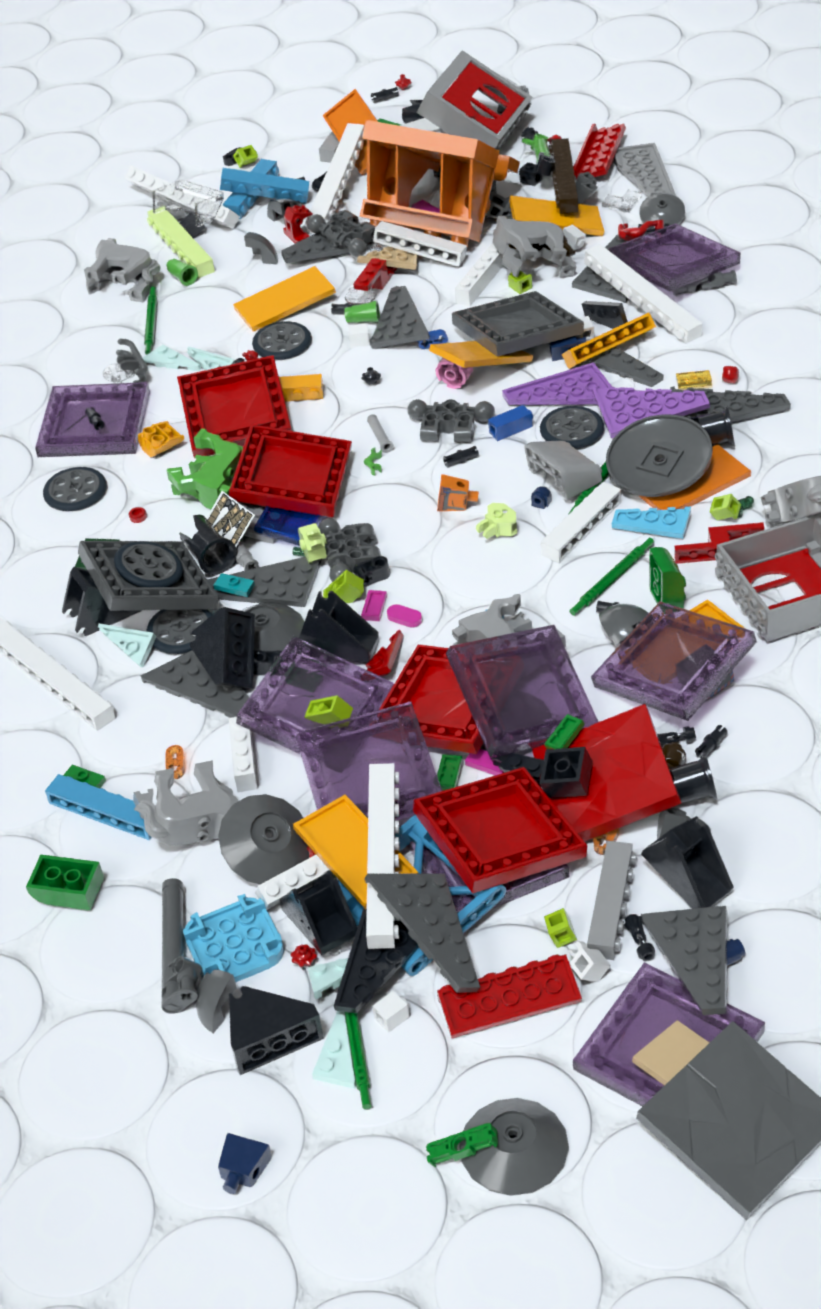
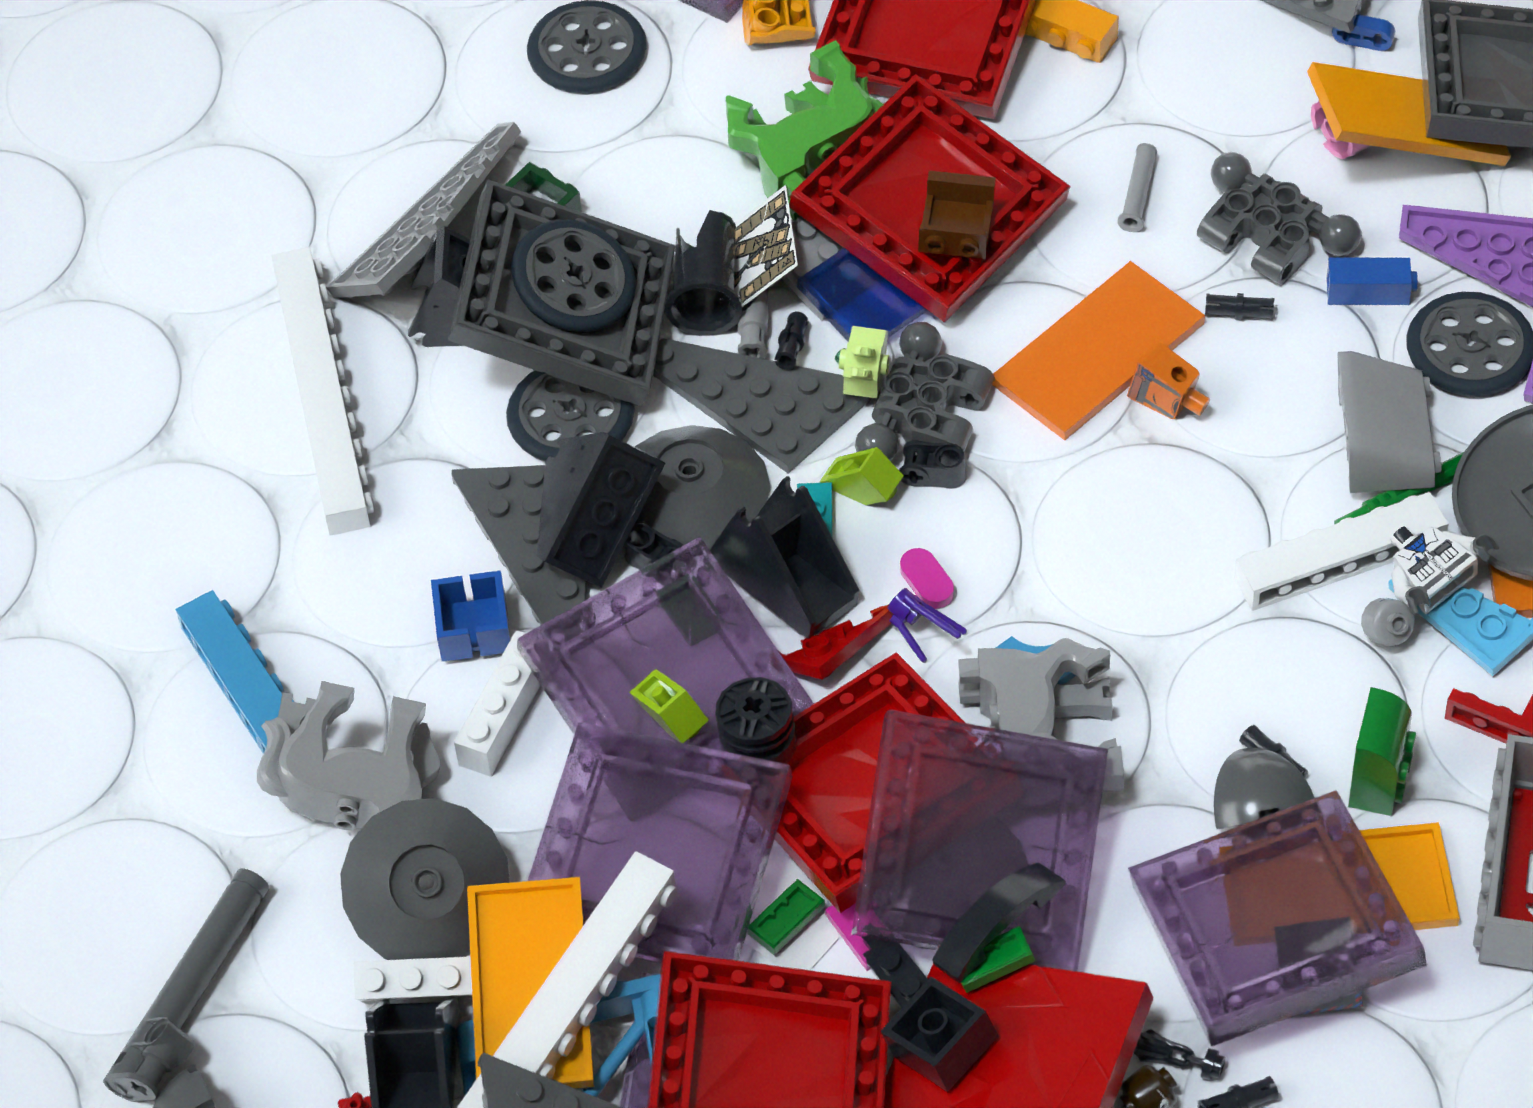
camera: 30 degrees right, 10 degrees up
(50, 585) = (409, 237): none -> light grey wing
(65, 882) = (106, 787): green brick -> none
(84, 775) = (254, 613): green plate -> none
(132, 642) = (479, 400): light aqua wing -> none
(137, 515) = (648, 151): red tile -> none
(179, 761) = (396, 656): clear orange beam -> none
(205, 727) = (473, 624): none -> blue piece
(234, 585) = (696, 376): teal plate -> none
(235, 939) = (277, 1029): medium azure tile -> none
(267, 553) = (791, 340): none -> black pin
(312, 468) = (957, 214): none -> reddish brown panel
(369, 461) = (1083, 234): bright green arm -> none
(371, 376) = (1205, 60): black plant -> none
(374, 605) = (894, 531): dark pink tile -> none
(378, 691) = (756, 720): none -> black wheel
(408, 626) = (909, 608): none -> dark purple plant
(409, 499) = (1095, 349): none -> orange tile
(497, 522) = (1199, 477): yellowish green hinge -> none
(541, 497) = (1313, 464): dark blue piece -> none
(552, 715) = (991, 914): none -> black slope
(611, 576) = (1316, 686): green axle -> none
(624, 536) = (1387, 621): none -> light grey head
(630, 502) = (1435, 565): none -> torso

